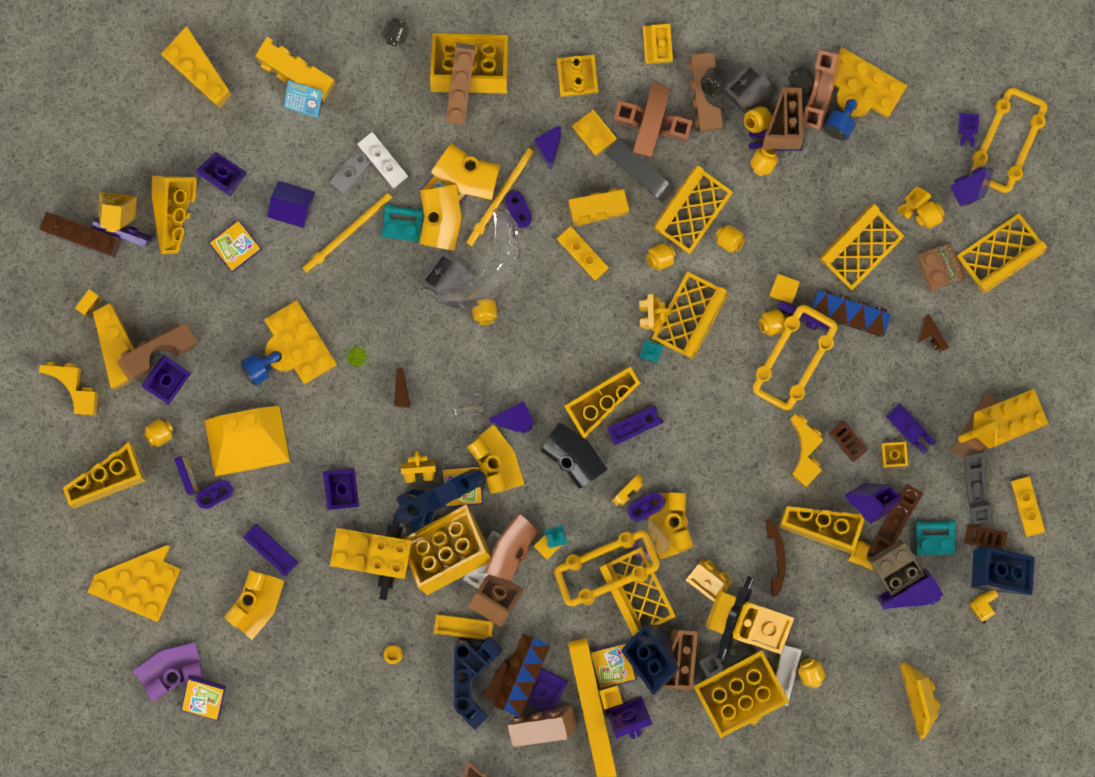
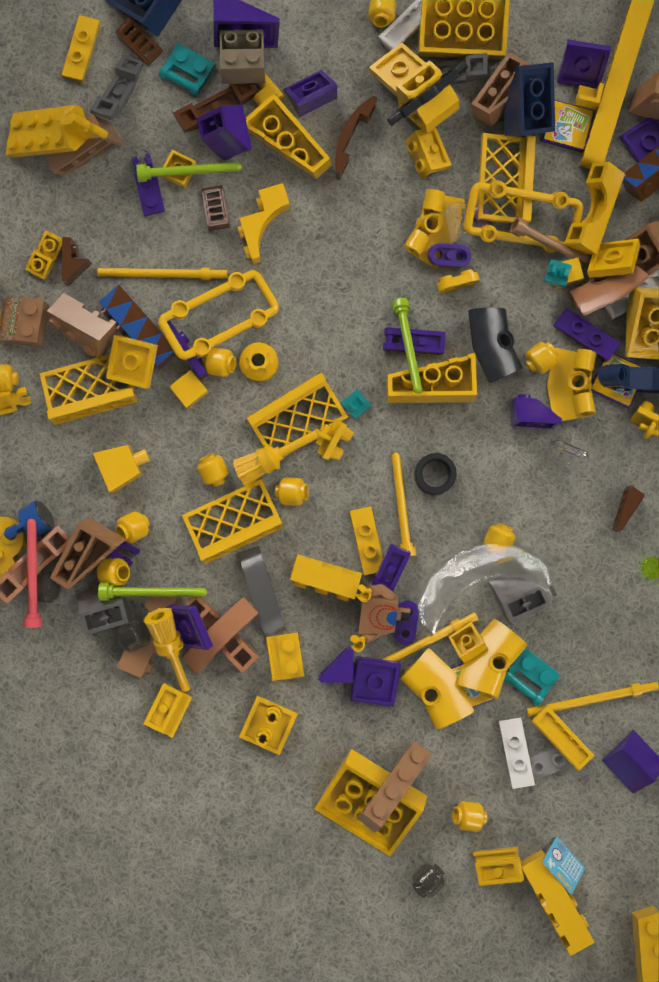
camera: 160 degrees left, 0 degrees up
(350, 71) = (498, 866): none -> yellow plate
(355, 189) = (562, 738): none -> yellow plate
(391, 94) = (469, 816): none -> yellow head
(464, 220) = (468, 642): none -> yellow piece
(505, 506) = (586, 334): none -> dark purple plate
(516, 152) = (375, 681): none -> dark purple tile
(519, 574) = (614, 258): none -> yellow plate
(530, 467) = (541, 357): none -> yellow head
(544, 201) = (377, 614): none -> medium nougat torso
(550, 264) = (401, 504): none -> yellow piece
(553, 237) = (391, 566): none -> dark purple hinge
(557, 627) = (604, 185): none -> yellow arch
(564, 318) = (452, 474): none -> black tyre
(603, 554) = (521, 228): none -> medium nougat piece
(659, 444) = (401, 307): none -> lime piece
(677, 111) = (191, 627): none -> dark purple tile
(687, 92) = (167, 641): none -> yellow piece
(693, 268) = (267, 459): none -> yellow piece
(736, 348) = (262, 372): none -> yellow piece
(752, 102) = (108, 592): none -> lime piece
(796, 52) = (33, 617): none -> coral piece
(800, 201) = (120, 466): none -> yellow torso
(825, 385) = (205, 273): none -> yellow bar
(829, 575) = (311, 92): none -> dark purple slope
(838, 282) = (131, 361): none -> yellow plate
(893, 288) = (81, 325): none -> medium nougat wedge
(915, 434) = (145, 172): none -> lime piece
(955, 329) = (45, 256): none -> yellow slope

